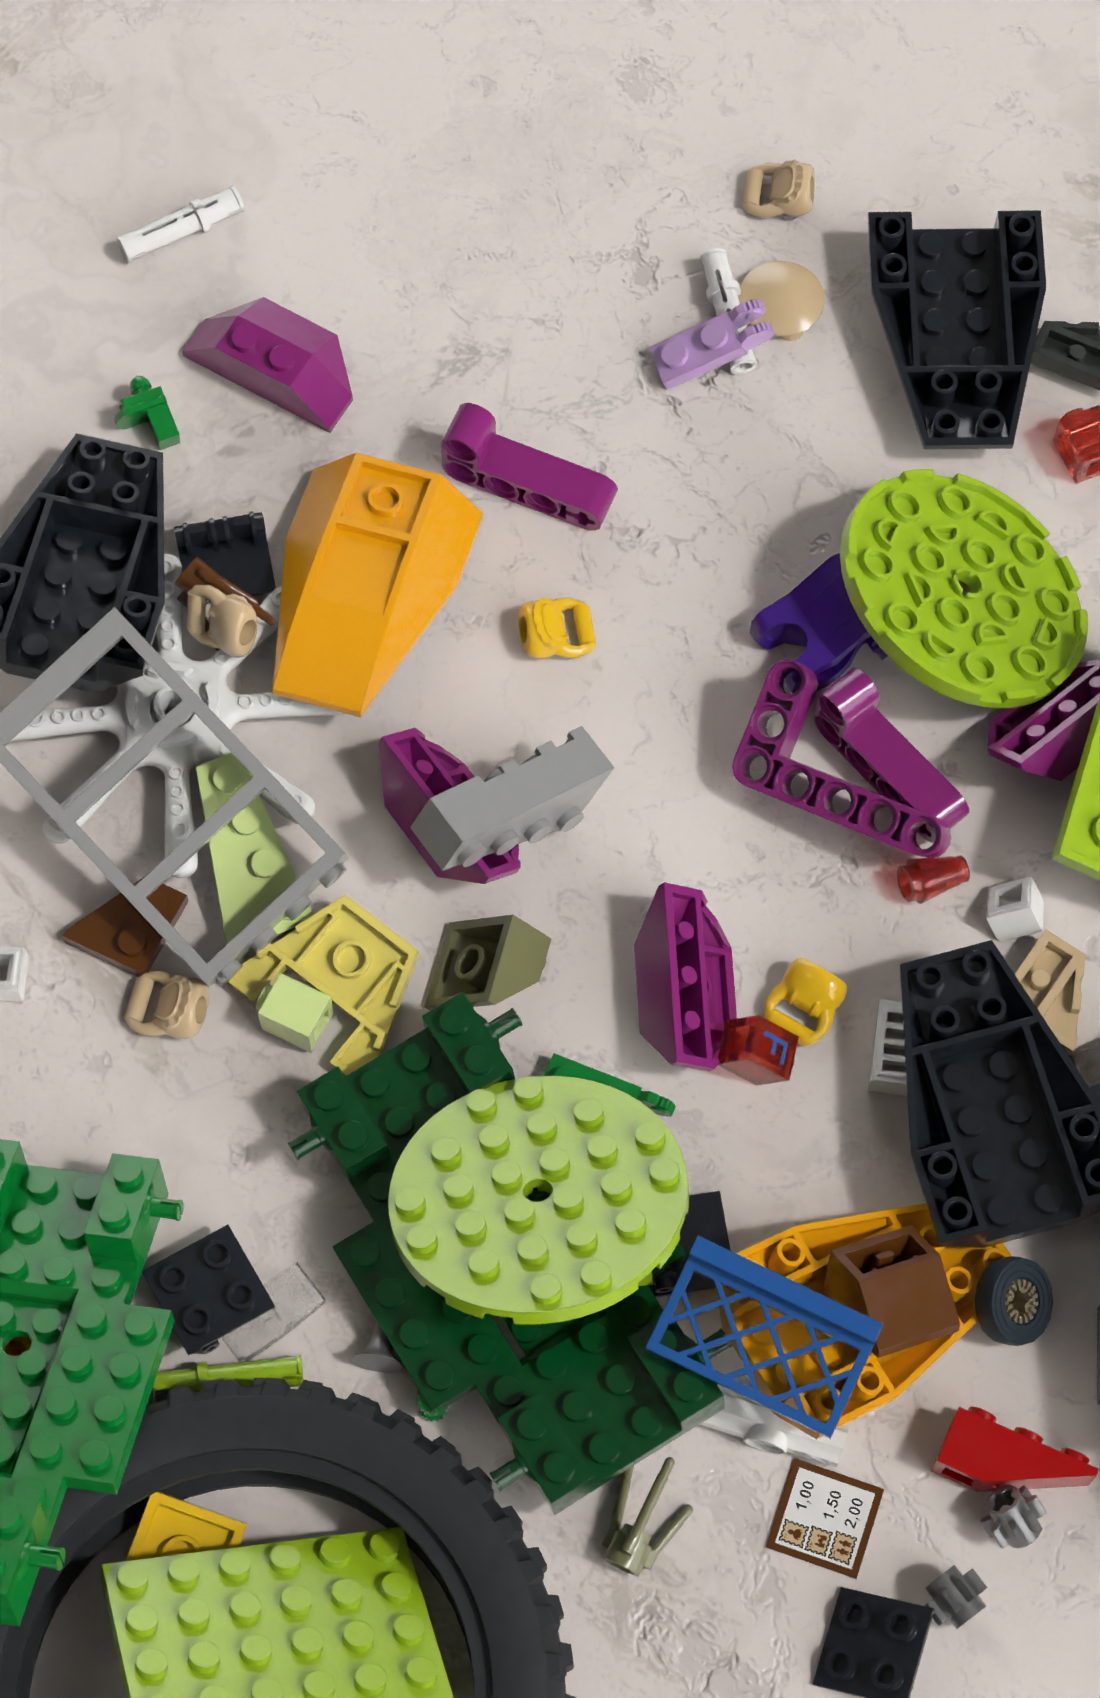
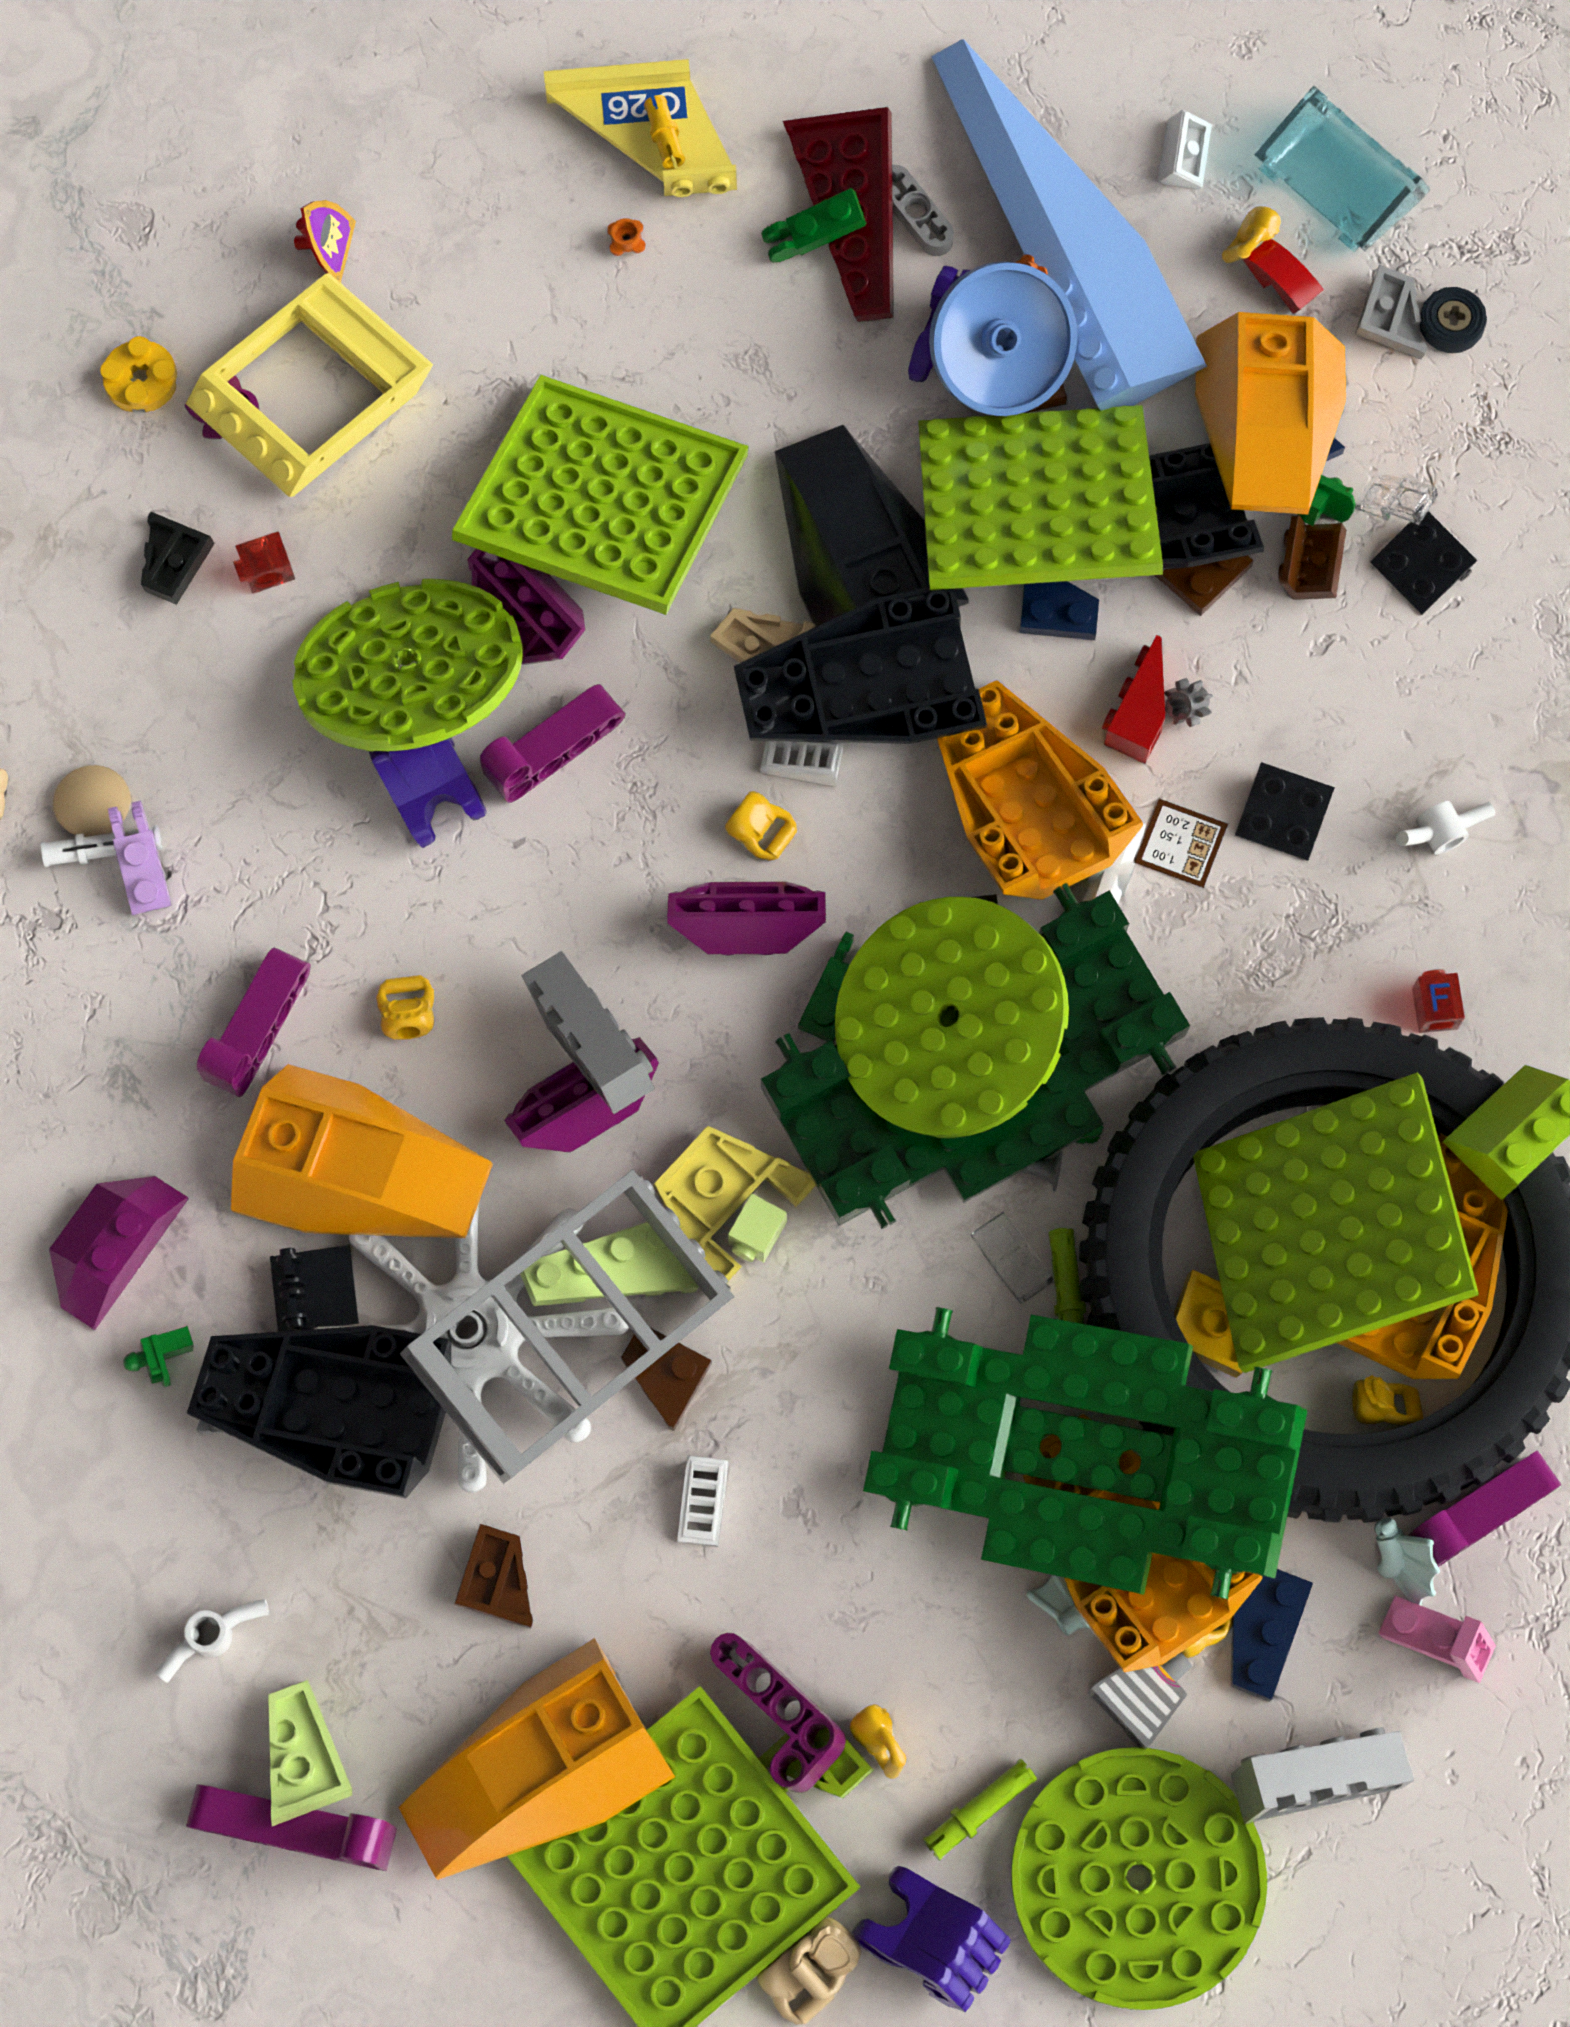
camera: 85 degrees left, 5 degrees up
(179, 1010) = (741, 1329): tan piece -> none
(202, 574) = (350, 1298): reddish brown plant -> none
(208, 1290) = (995, 1300): black hinge -> none
(230, 620) = (393, 1270): tan piece -> none
(488, 960) = (721, 1075): olive slope -> none
(629, 1547) = (1207, 982): olive plant -> none
(757, 1050) = (807, 861): clear red brick -> none
(784, 1297) = (1038, 836): blue fence -> none
(821, 786) = (575, 791): magenta beam -> none
(897, 1283) = (1022, 766): reddish brown slope -> none
(929, 877) = (657, 720): clear red cone -> none
(956, 1596) = (1248, 748): flat silver gear -> none
(960, 321) = (138, 648): black wedge -> none
(1015, 909) = (687, 659): white slope -> none
(1027, 1315) = (1021, 685): black bush -> none

